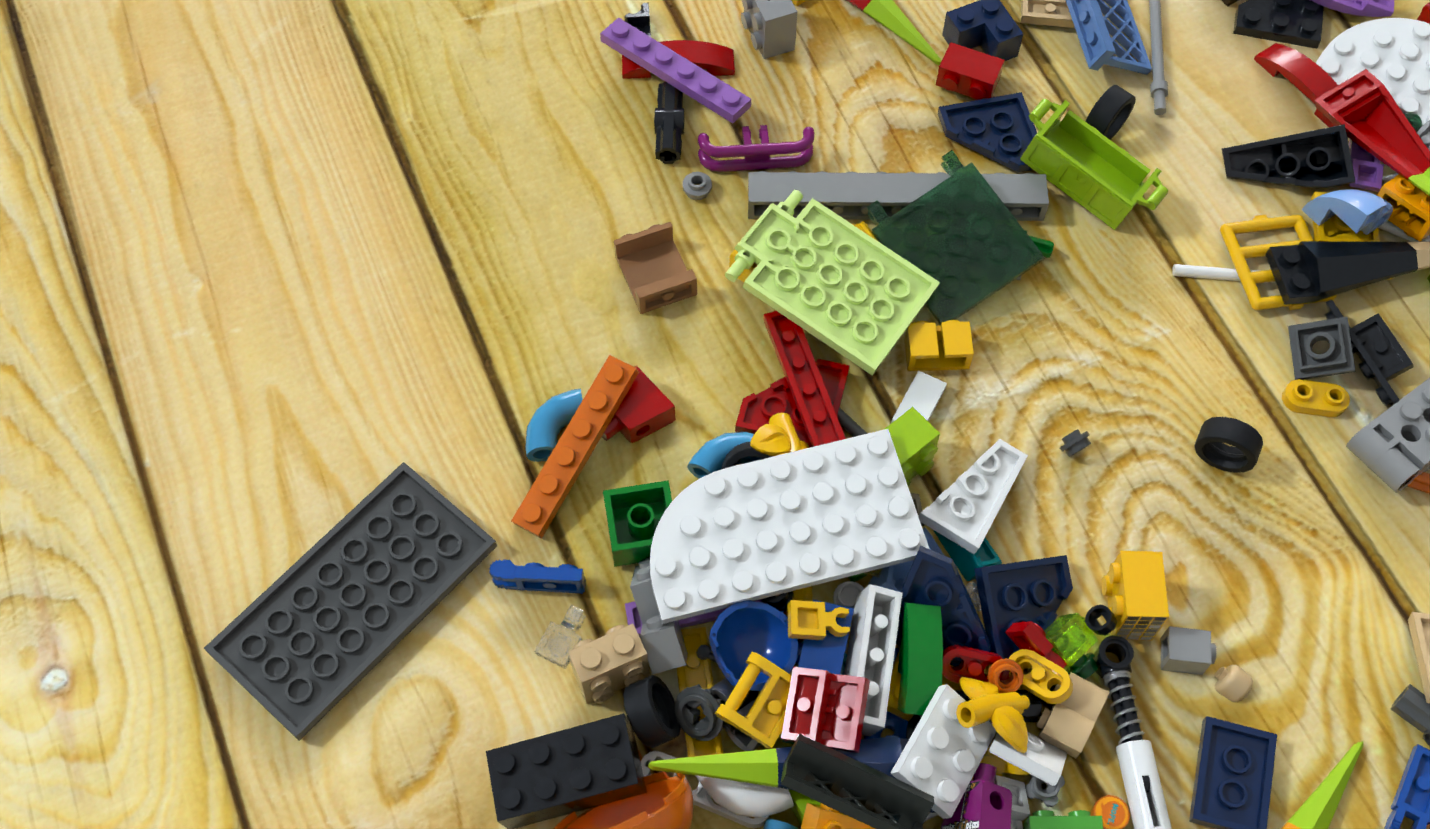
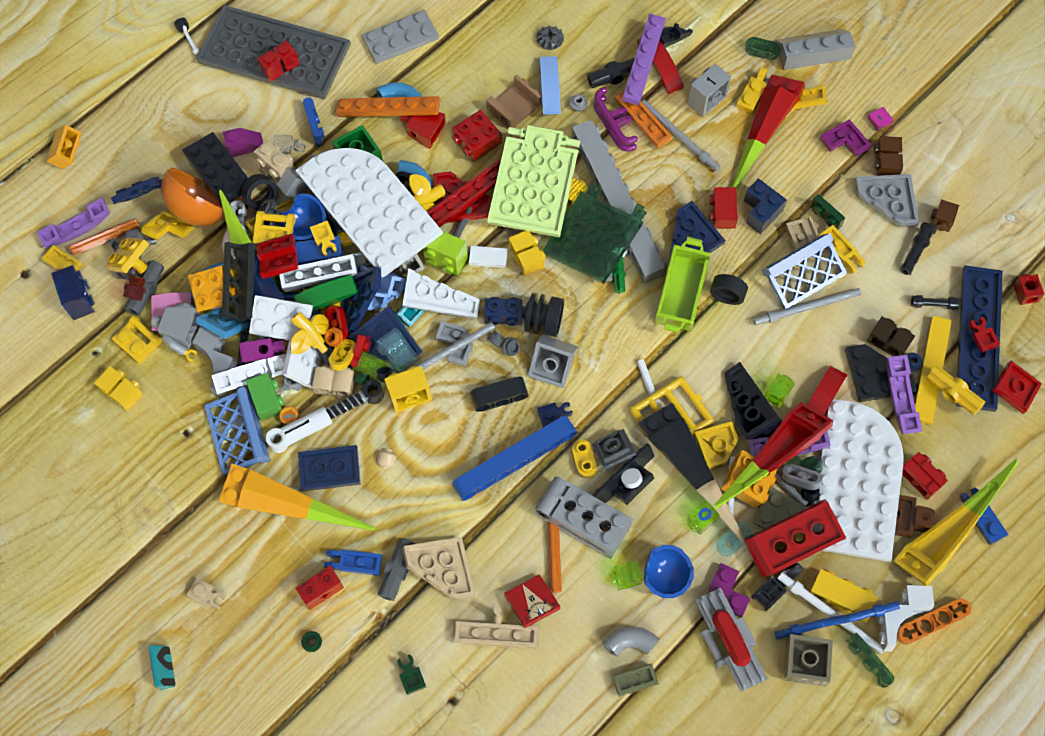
camera: 70 degrees right, 5 degrees up
(203, 741) = (183, 26): none -> hinge
(393, 594) = (270, 61): none -> red piece
(434, 388) = (400, 37): none -> light grey plate
(520, 710) = (241, 141): none -> magenta slope
(562, 188) = (544, 41): none -> dark grey gear
(650, 207) = (550, 85): none -> light blue slope
(695, 337) = (476, 135): none -> red brick
(773, 112) = (645, 121): none -> orange plate
(866, 69) = (703, 156): none -> light grey bar
(1034, 405) = (504, 311): none -> dark blue brick
(1059, 587) = (396, 350): none -> clear light blue brick
(1063, 494) = (450, 334): none -> light grey plate
(1068, 354) = (544, 314): none -> black wheel
(1091, 587) = (456, 346): none -> light grey bar
(1096, 425) = (510, 346): none -> dark grey plate
(1142, 376) = (552, 361): none -> light grey slope
(1175, 472) = (499, 394): none -> black beam
(1187, 650) = (391, 426): light grey brick -> none
(1222, 430) = (523, 412): black tyre -> none
(1226, 405) = (551, 412): none -> clear blue plate
(1281, 118) = (779, 390): none -> clear neon green brick
(1295, 493) = (514, 458): none -> blue beam
(1354, 207) = (718, 439): light blue brick -> none
(1378, 341) = (631, 478): none -> white tile

